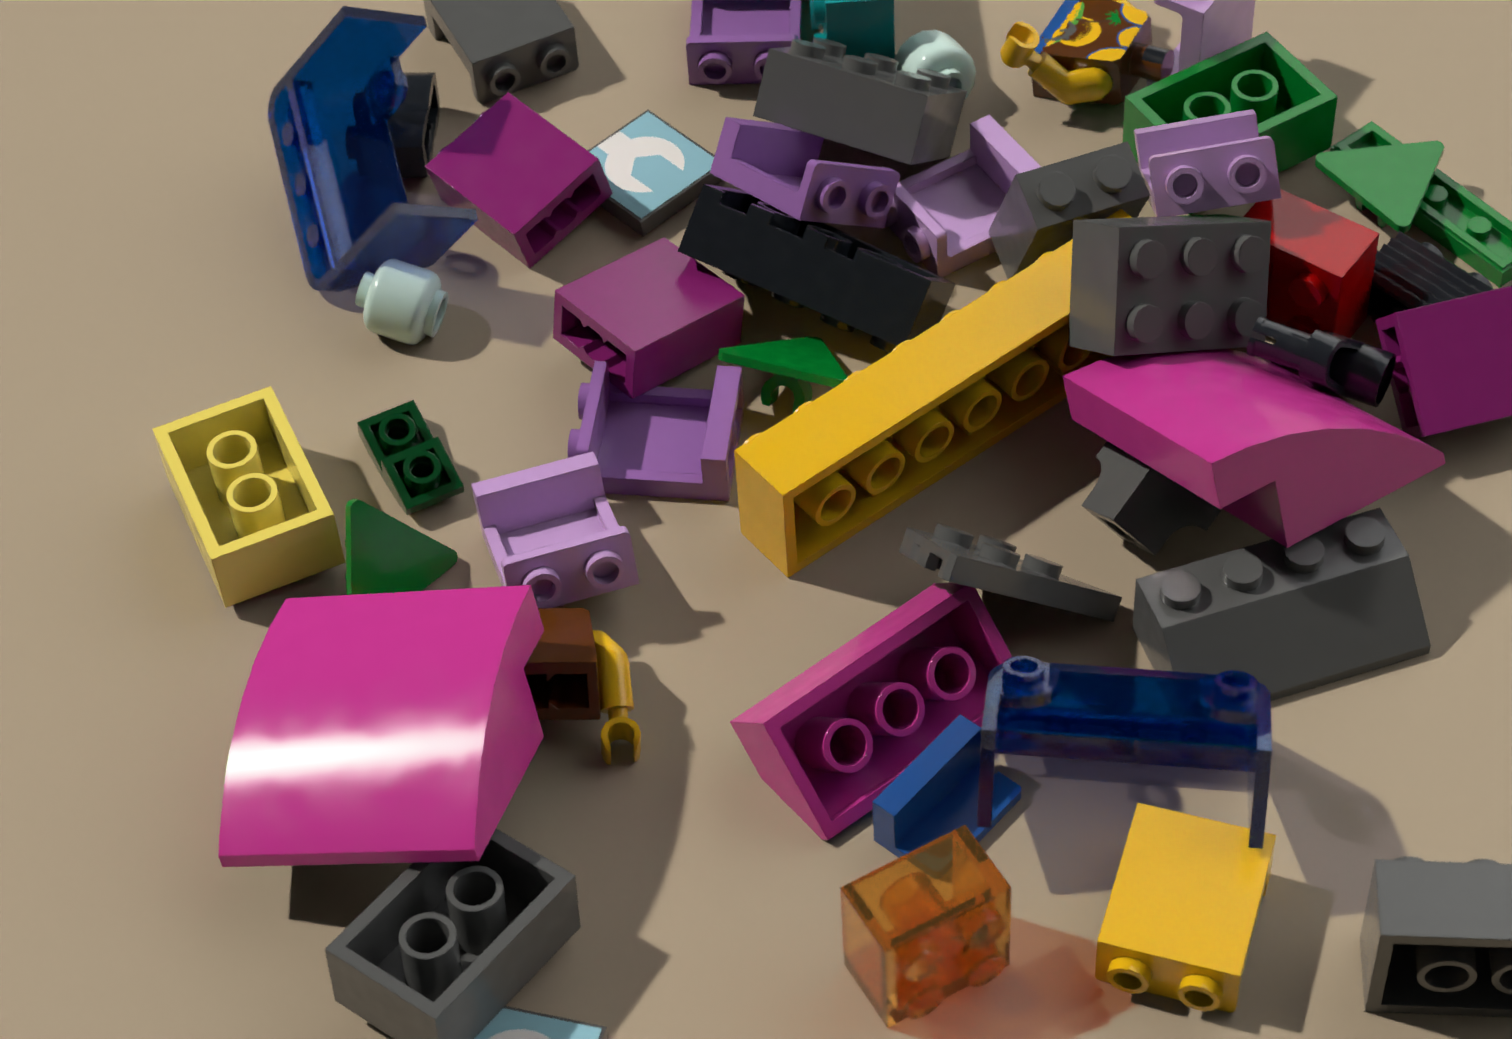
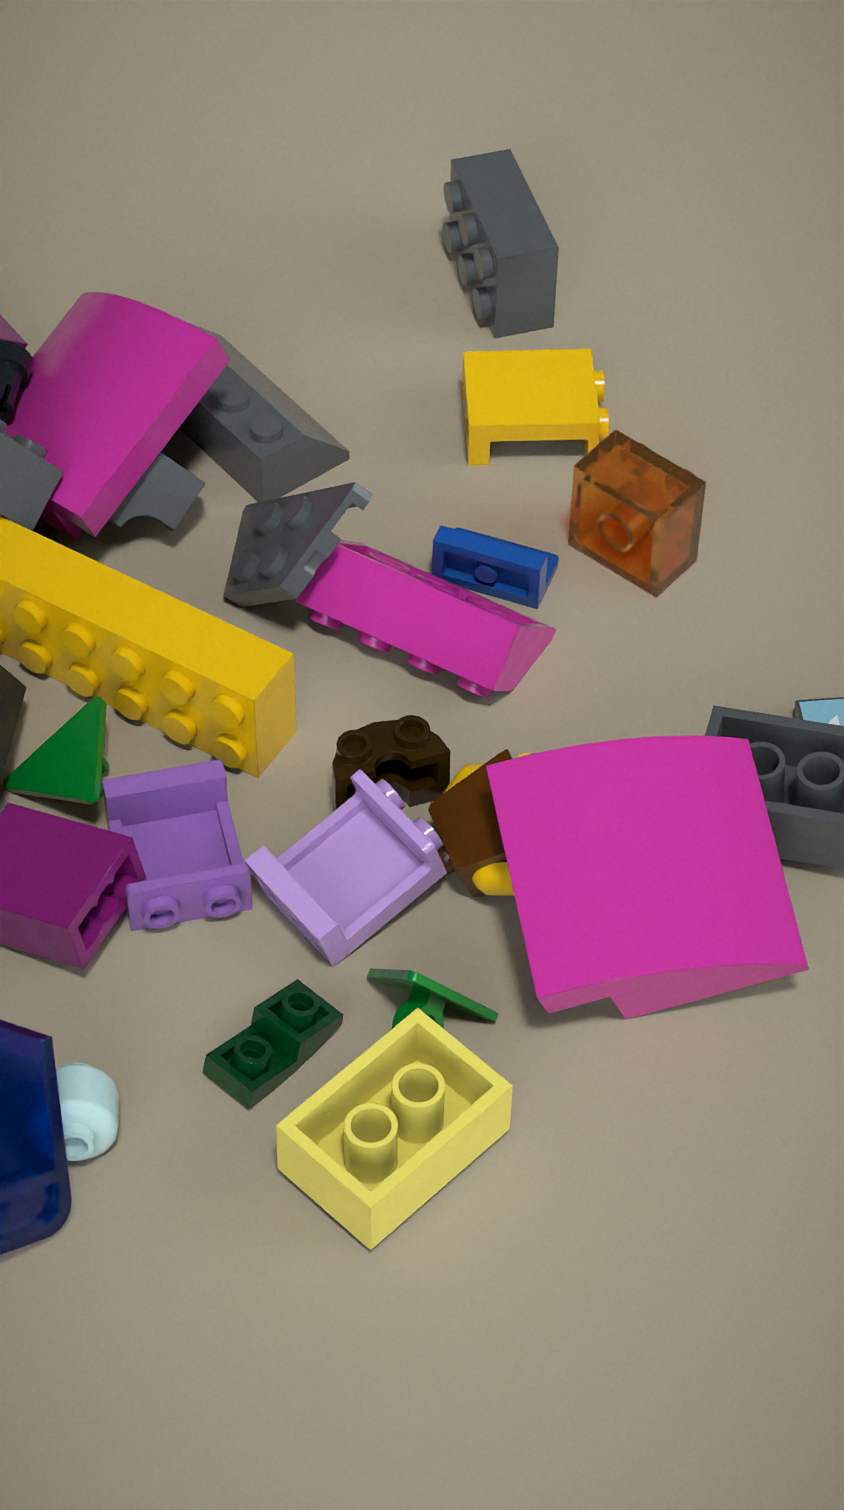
camera: 115 degrees left, 0 degrees up
(675, 605) = (397, 751): none -> dark brown cylinder
(1128, 719) = (422, 483): clear blue windscreen -> none

